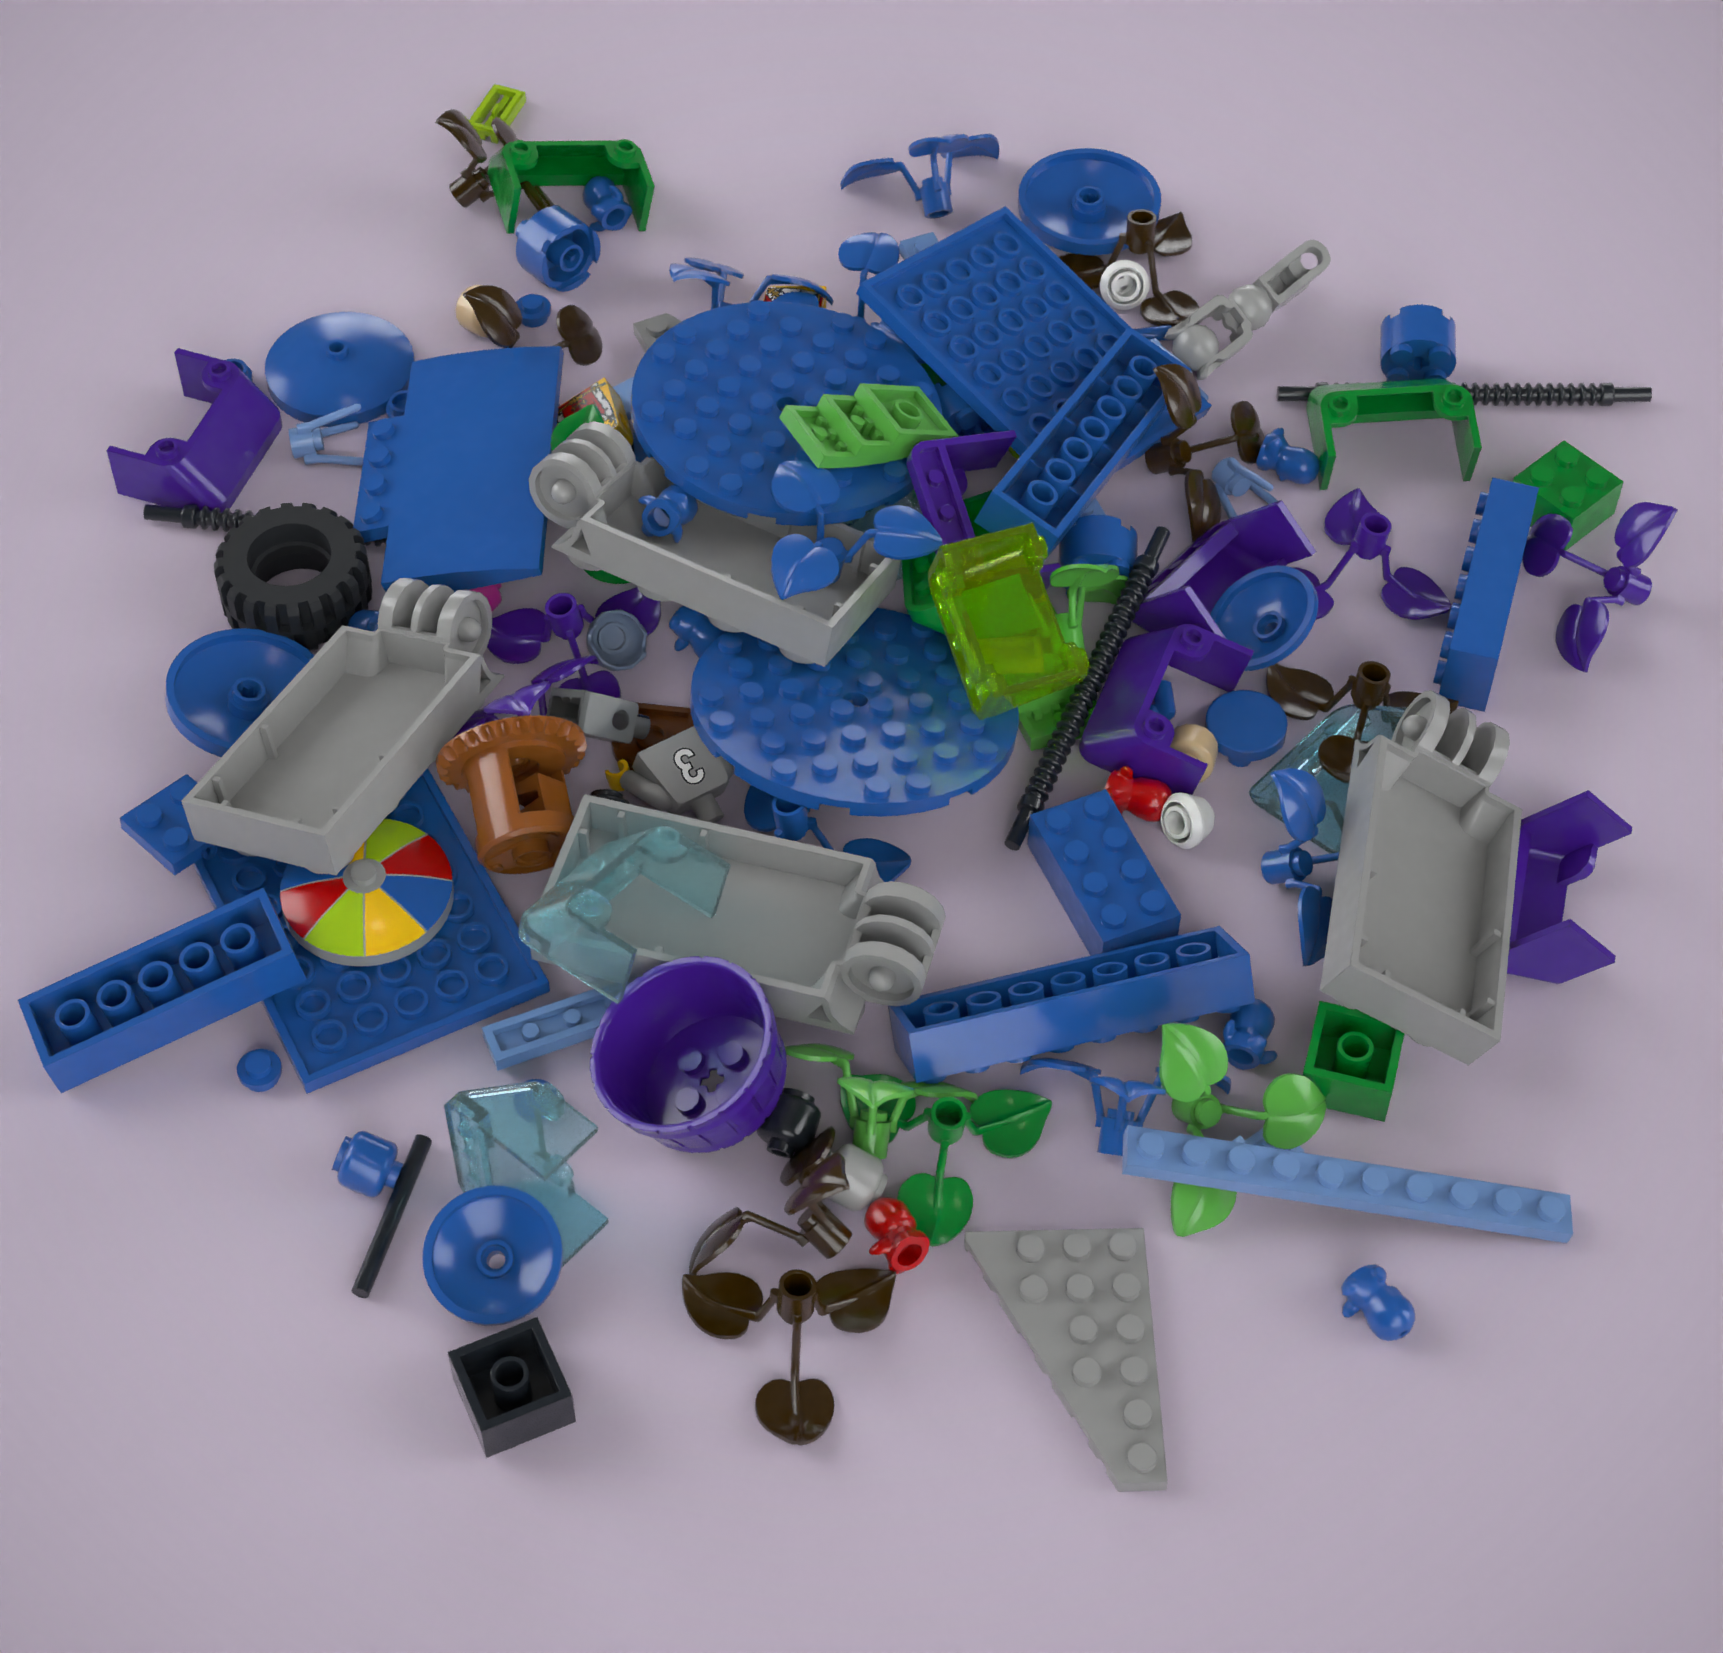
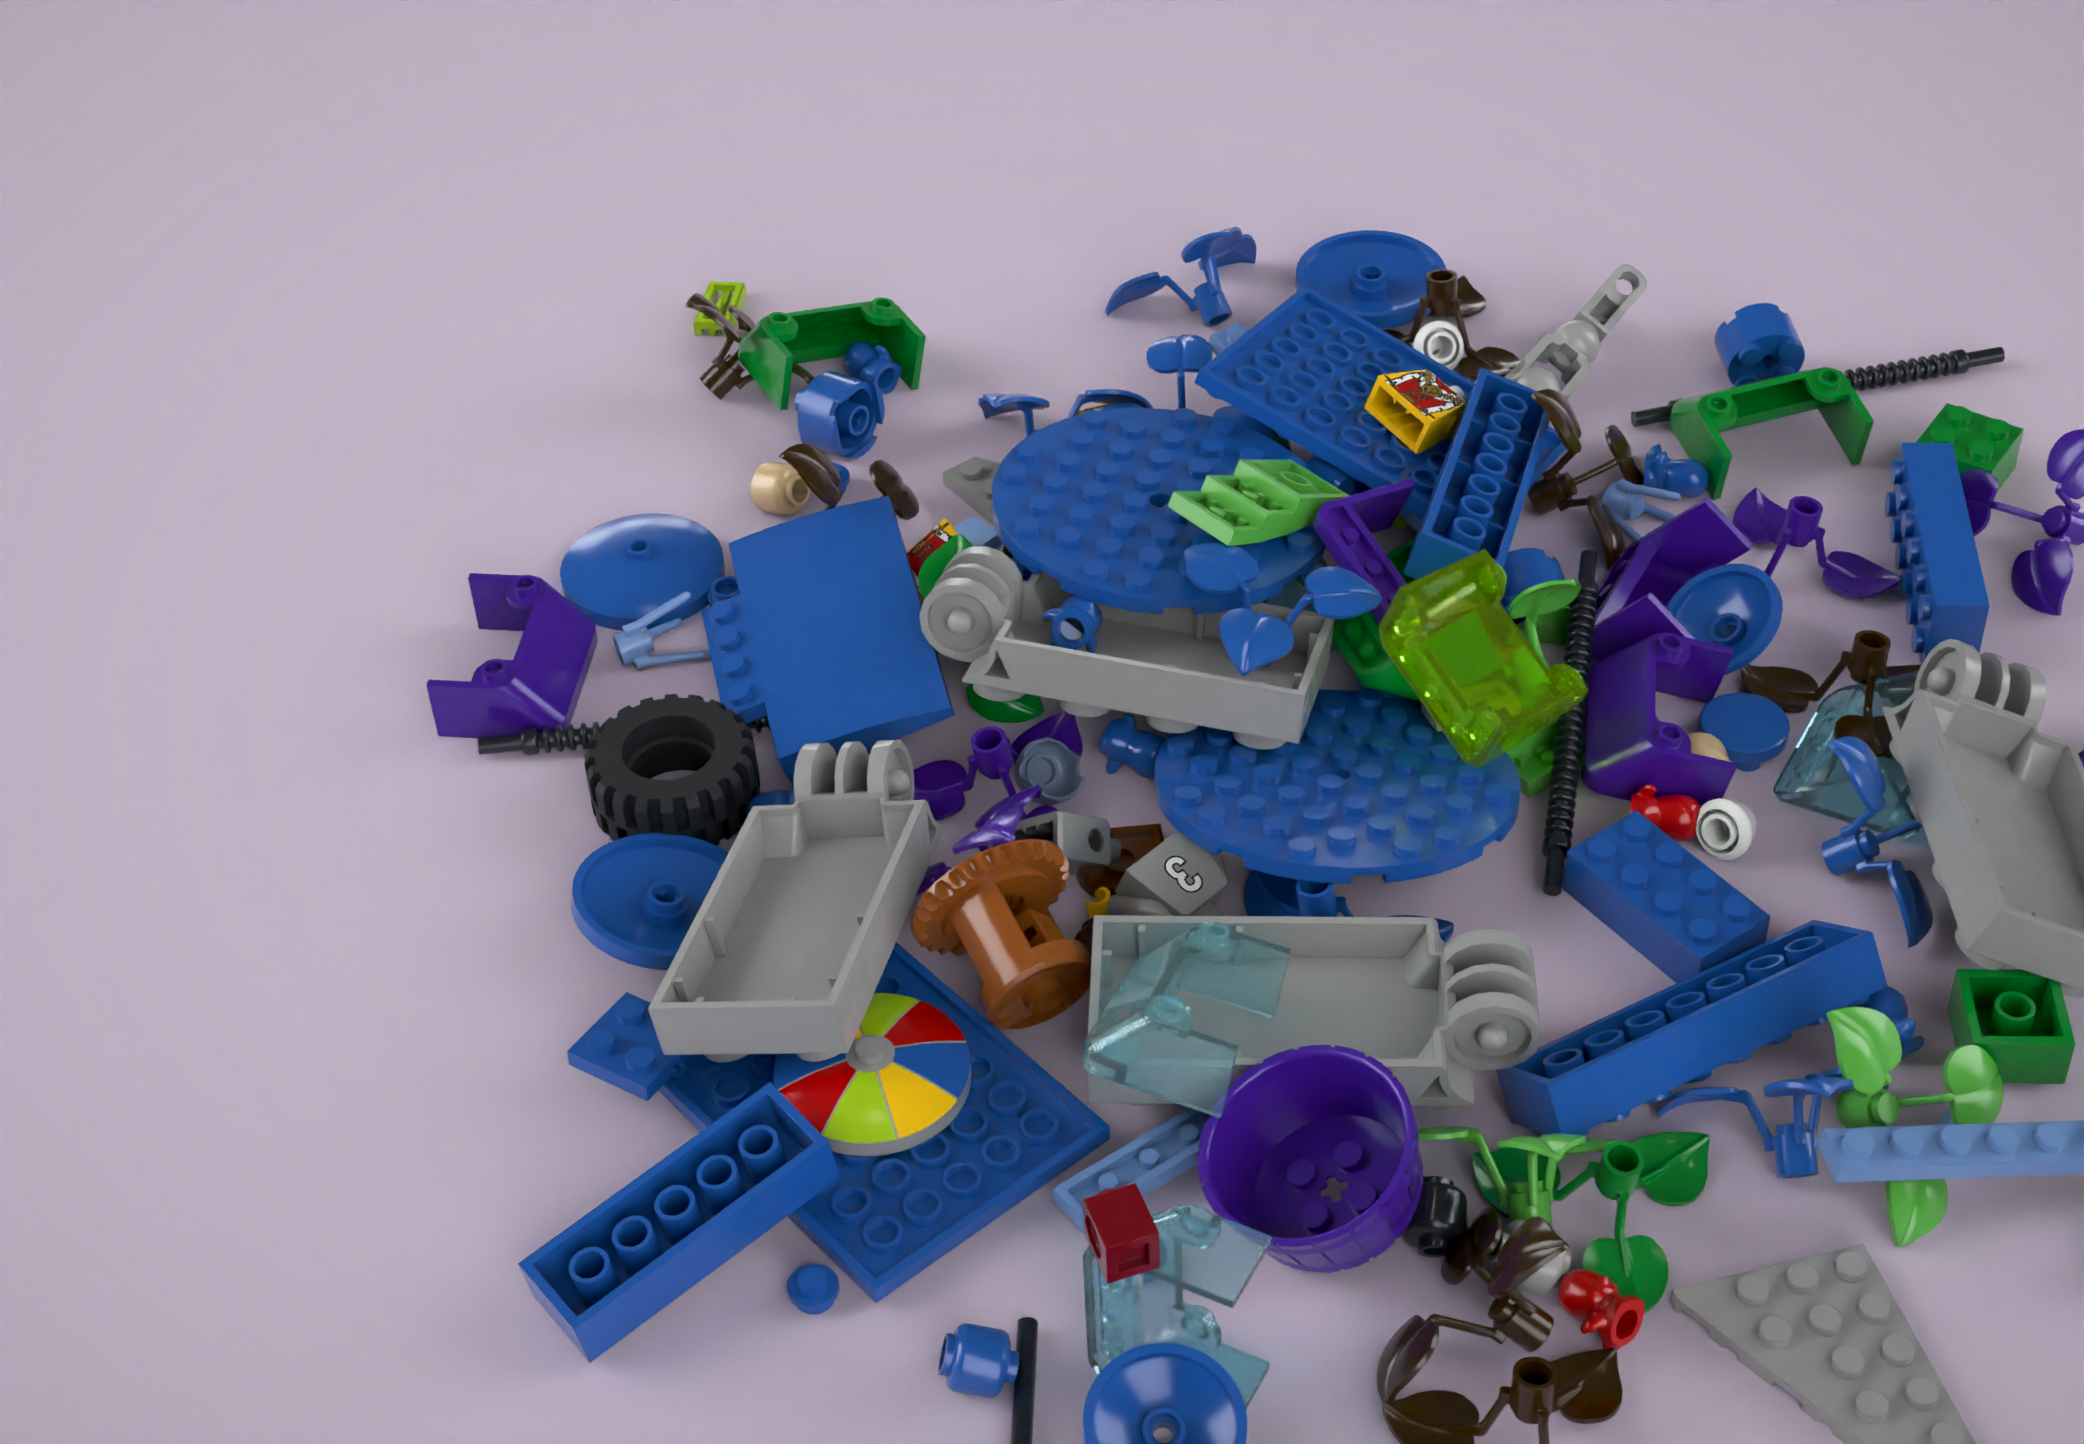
camera: 10 degrees left, 10 degrees down
(468, 1098) = (1121, 1232): none -> dark red brick
(1057, 353) = (1416, 407): none -> yellow torso

